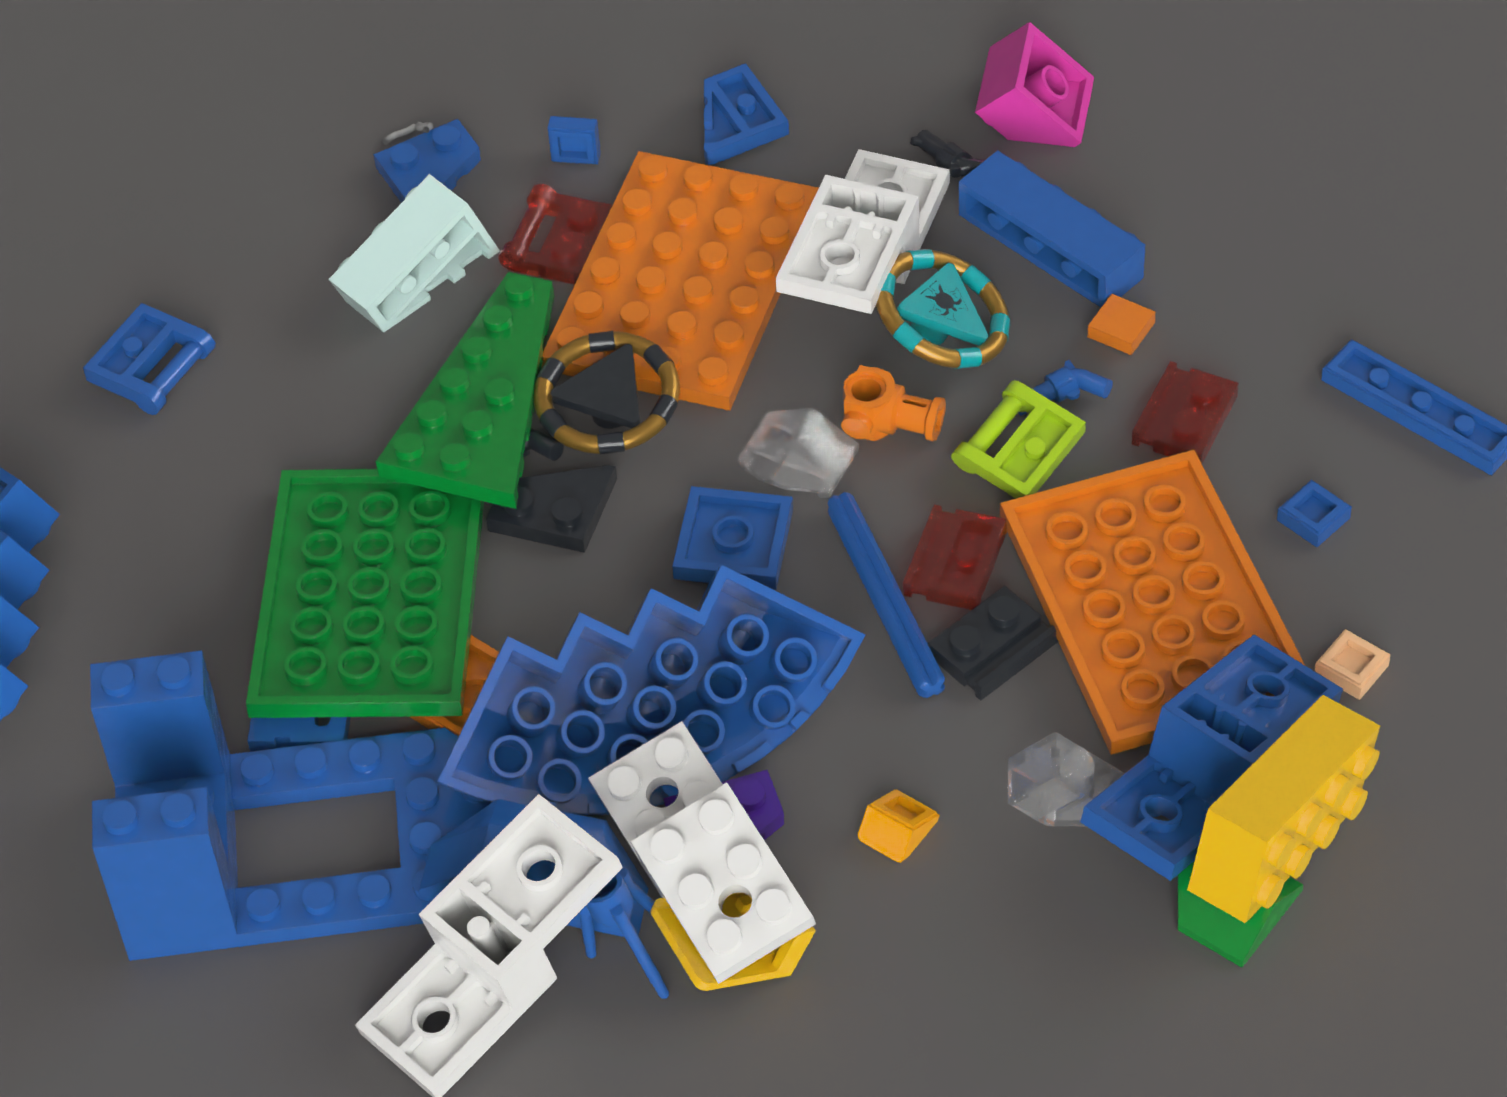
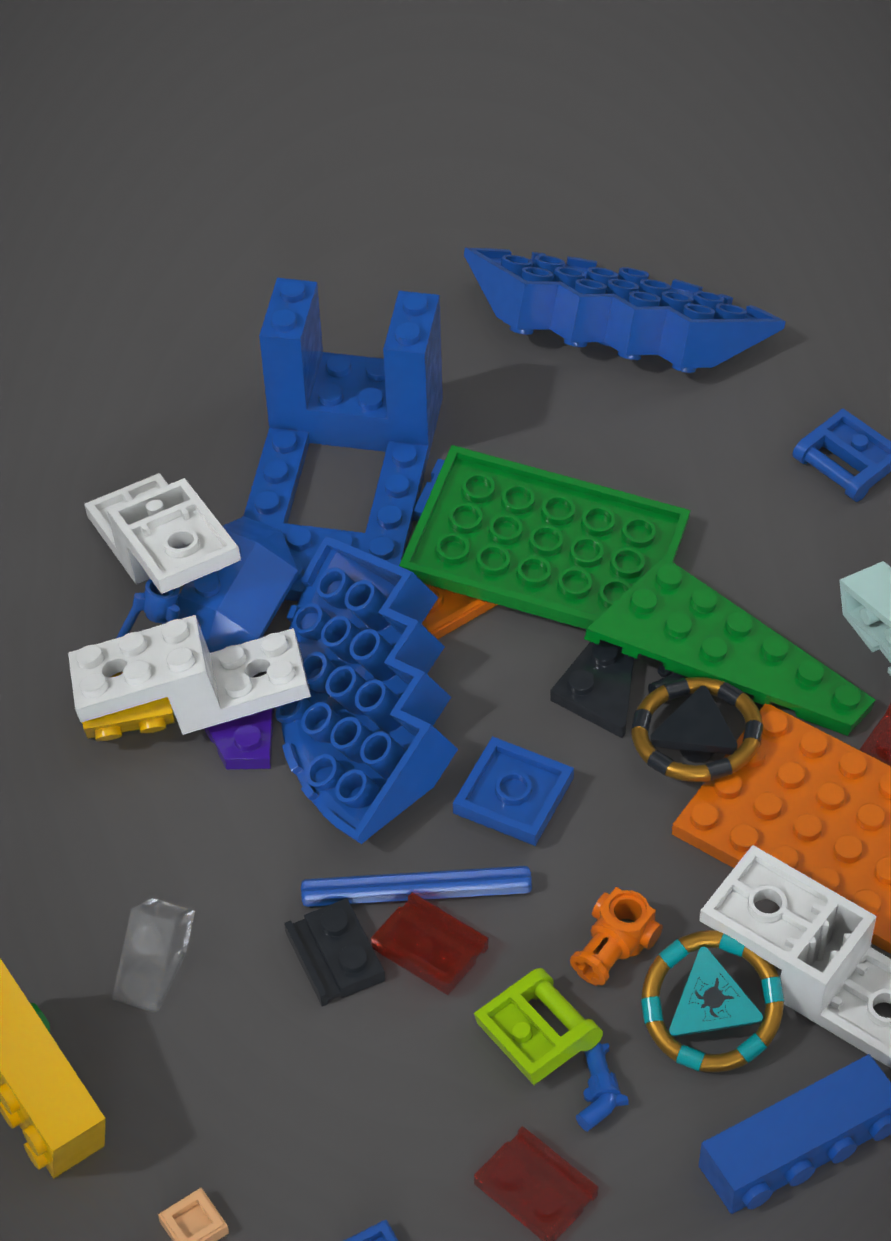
camera: 105 degrees right, 0 degrees up
(799, 452) = (592, 860): clear slope -> none
(896, 825) = (187, 838): light orange slope -> none
(1121, 324) = (666, 1166): orange tile -> none
(1141, 586) = (323, 1083): orange plate -> none
(1201, 749) = (120, 1049): blue bracket -> none

